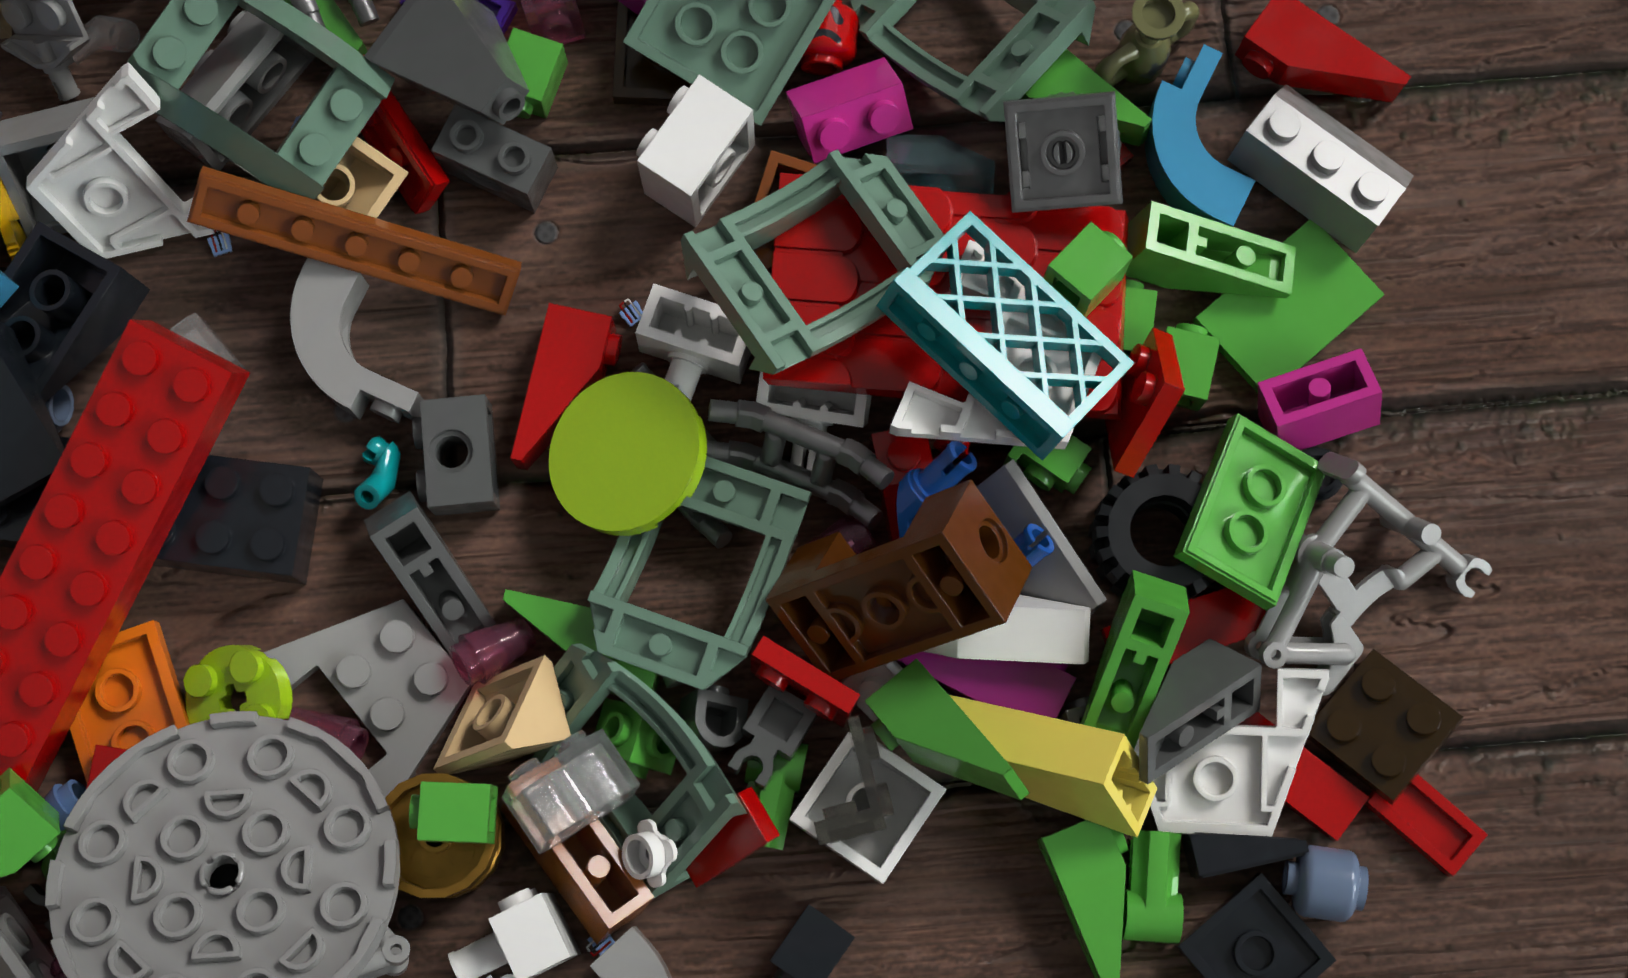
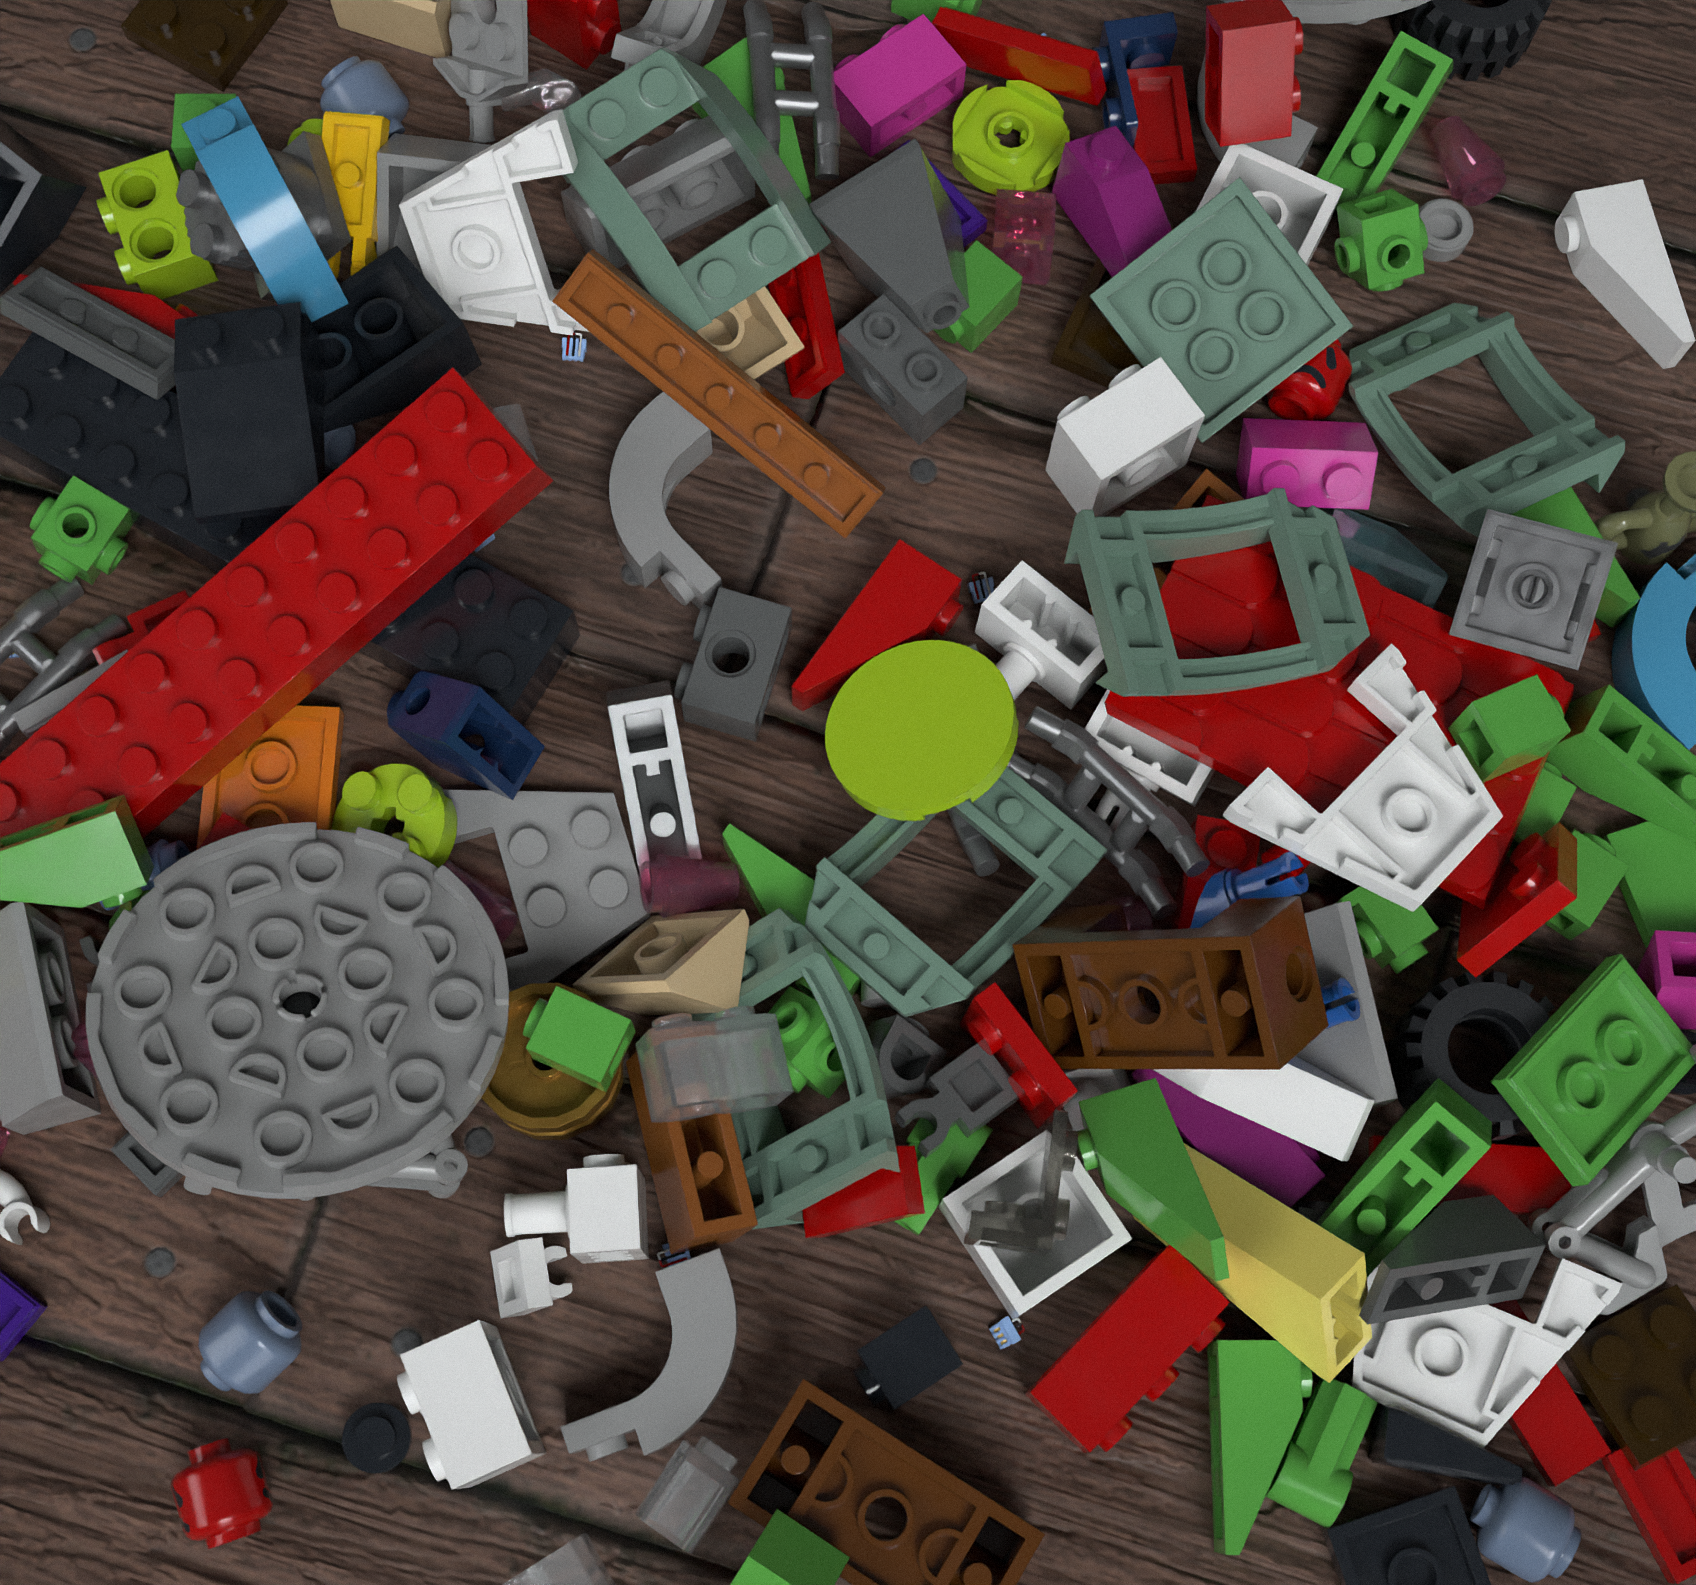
camera: 20 degrees right, 5 degrees down
(236, 598) = (442, 711): none -> dark blue torso
(383, 478) = (642, 660): teal arm -> none
(648, 854) = (771, 1173): white plate -> none
(879, 895) = (1006, 1333): none -> light blue piece
(978, 874) = (1129, 1351): none -> red brick
(980, 359) = (1359, 772): teal fence -> none

